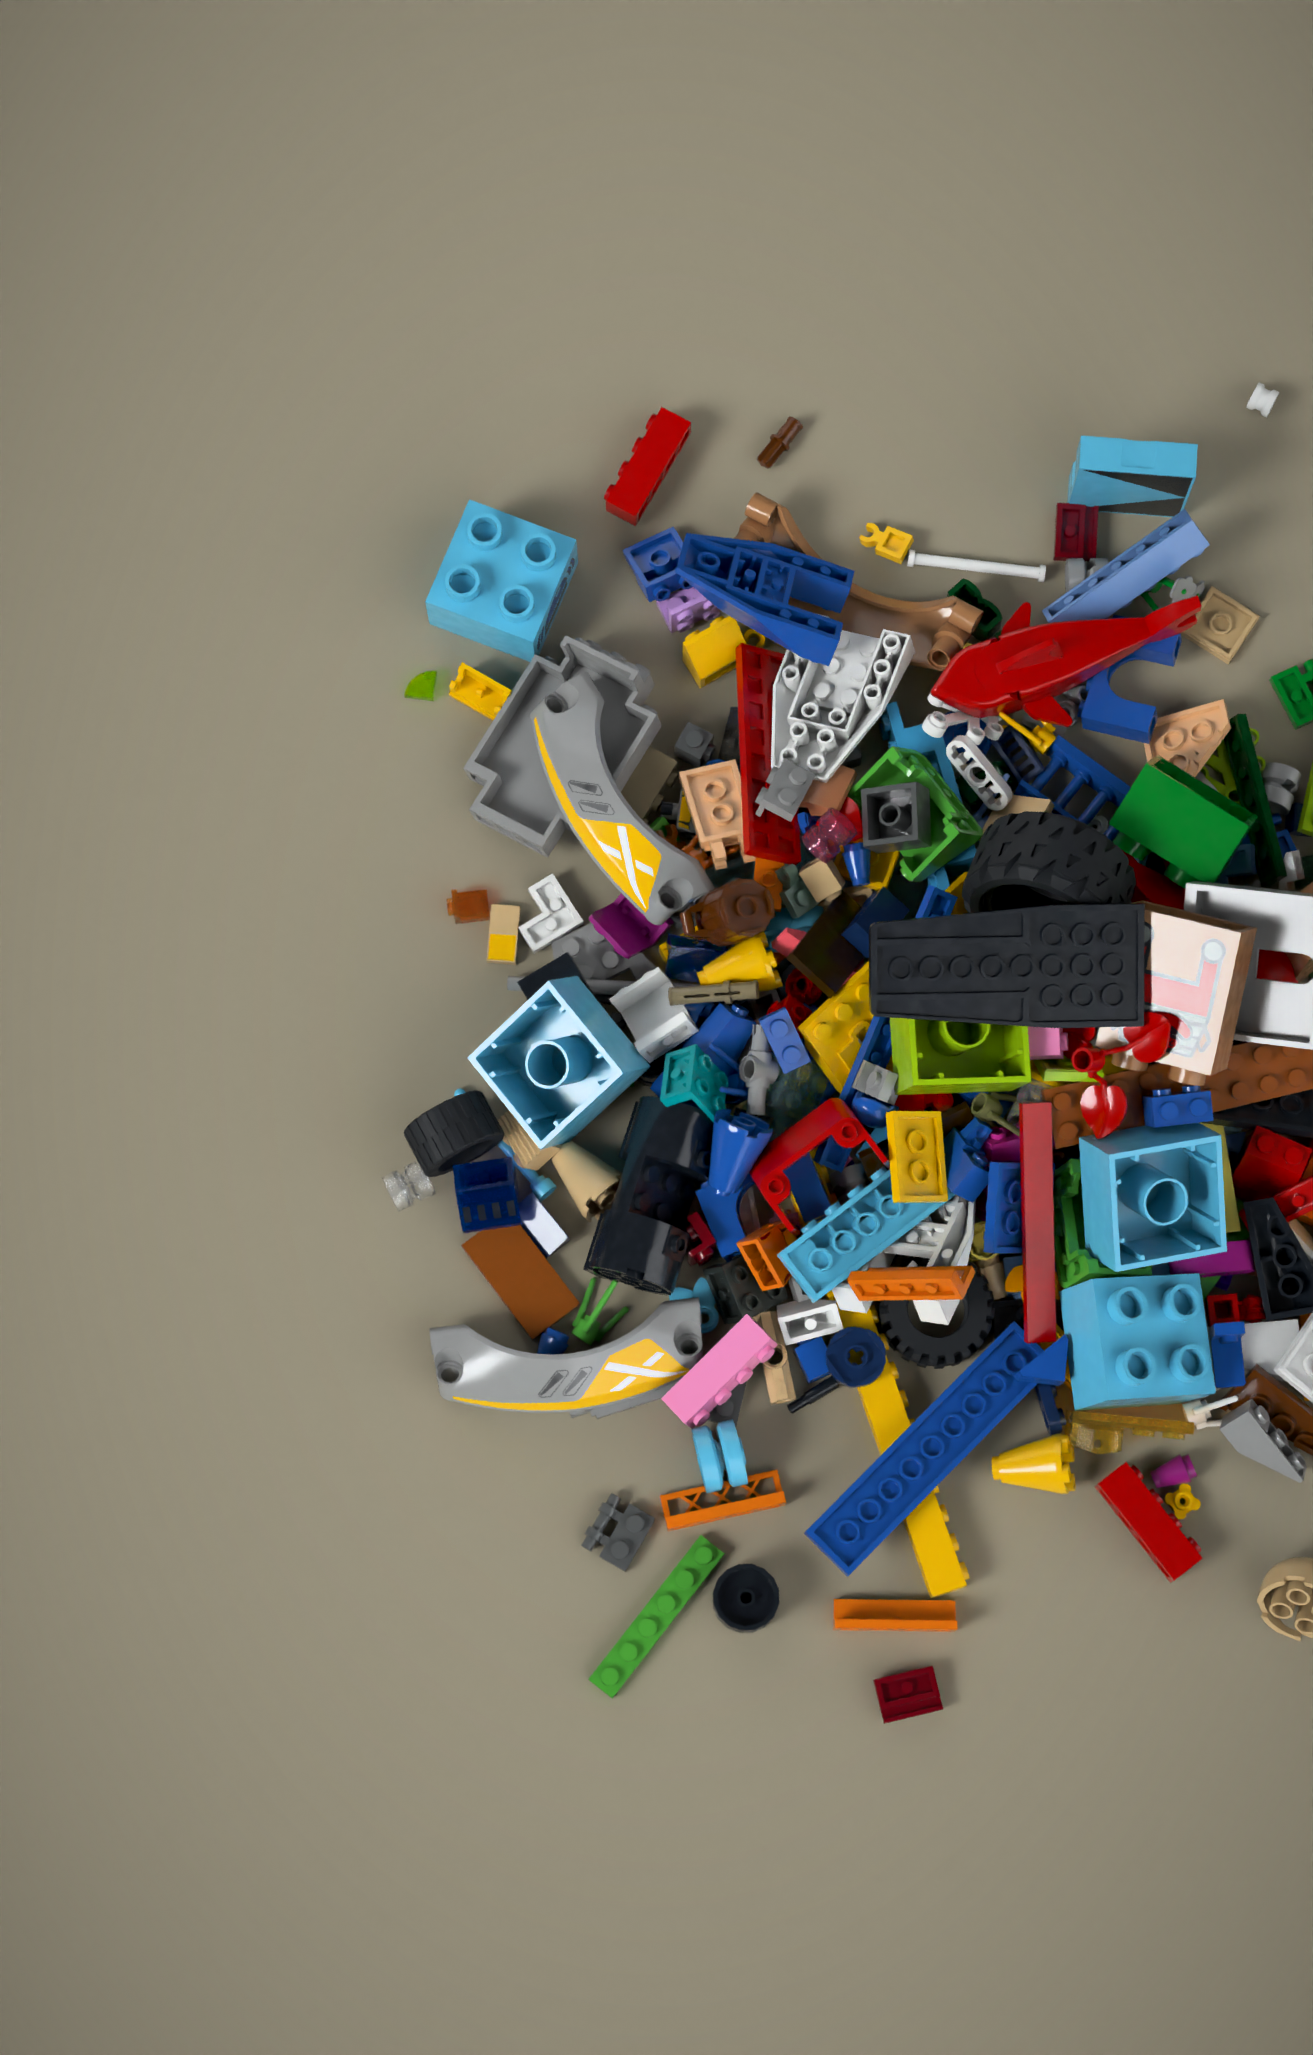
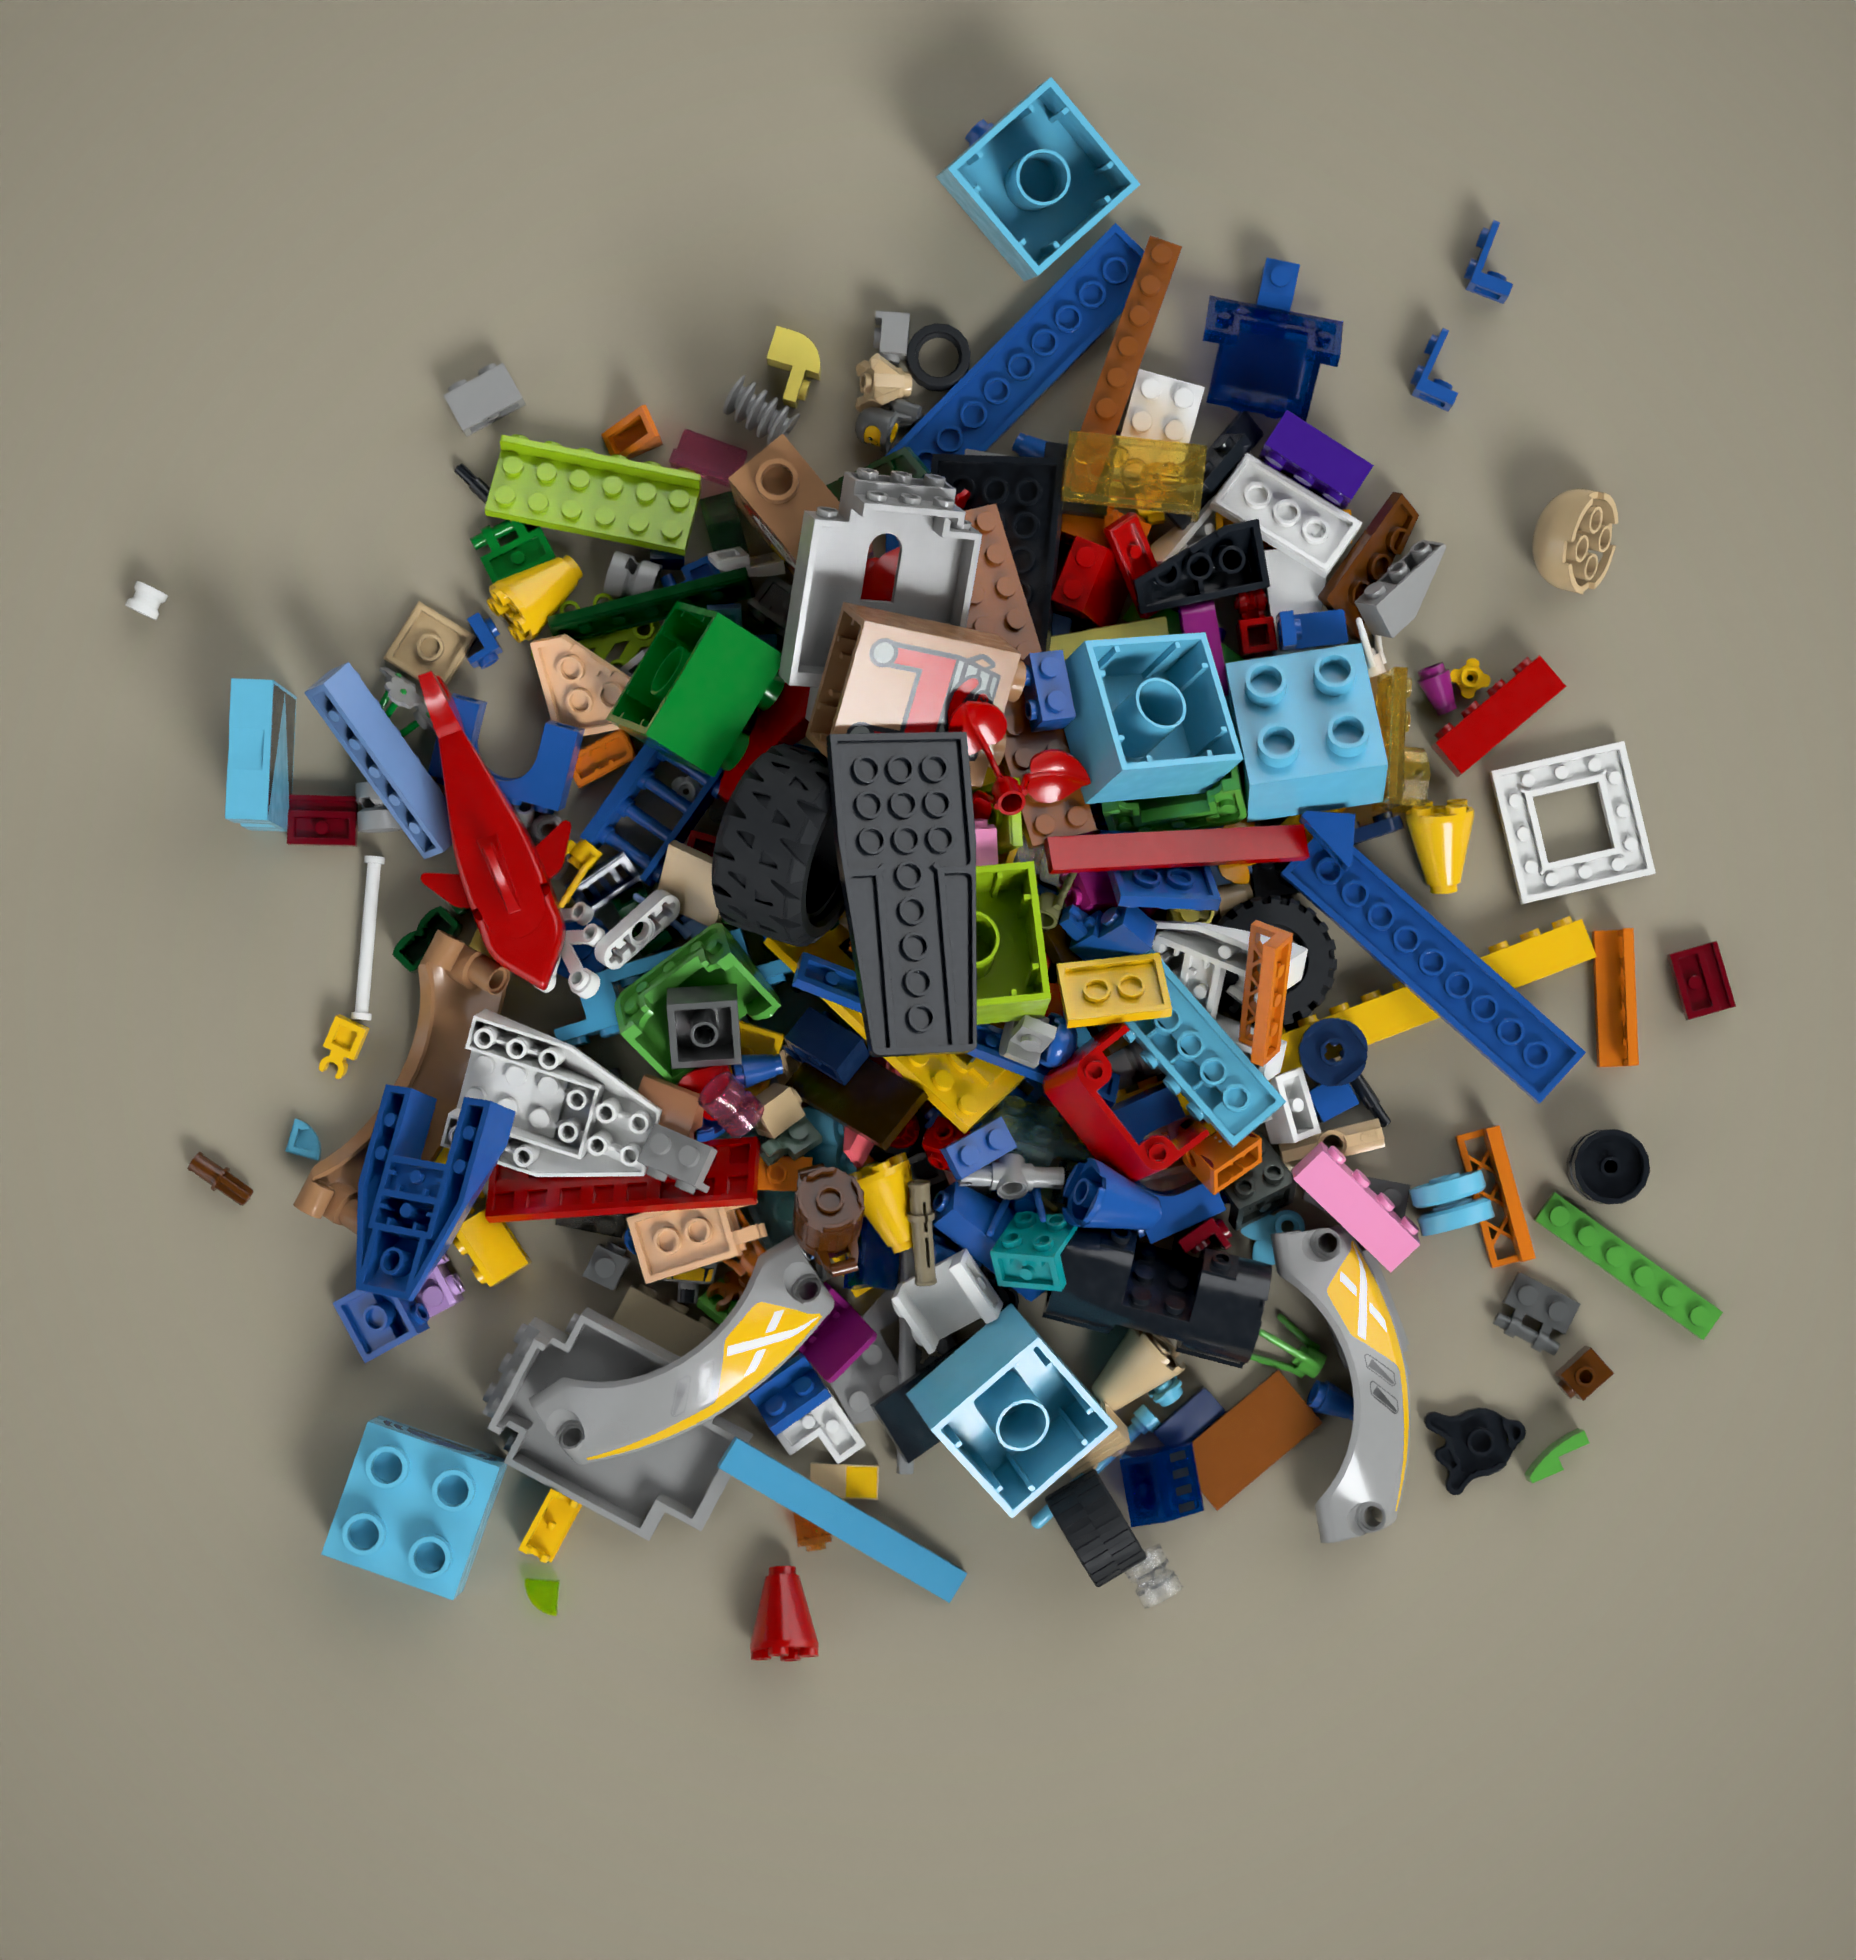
camera: 95 degrees left, 10 degrees up
(390, 876) = (783, 1619): none -> red cone
(472, 925) = (842, 1519): none -> dark azure tile
(487, 1536) = (1548, 1461): none -> bright green slope
(506, 1472) = (1475, 1444): none -> black tile
(563, 1569) = (1583, 1374): none -> reddish brown brick
(566, 1206) = (1167, 1392): none -> medium azure plate
(580, 888) = (789, 1394): none -> blue bracket
(648, 466) = (258, 1337): red brick -> none
(808, 509) = (304, 1141): none -> medium azure tile
(1088, 1541) = (1514, 796): none -> white plate
(1123, 757) = (603, 757): none -> orange plate
(1231, 668) = (486, 632): none -> blue bracket
(1265, 707) = (533, 595): none -> yellow cone

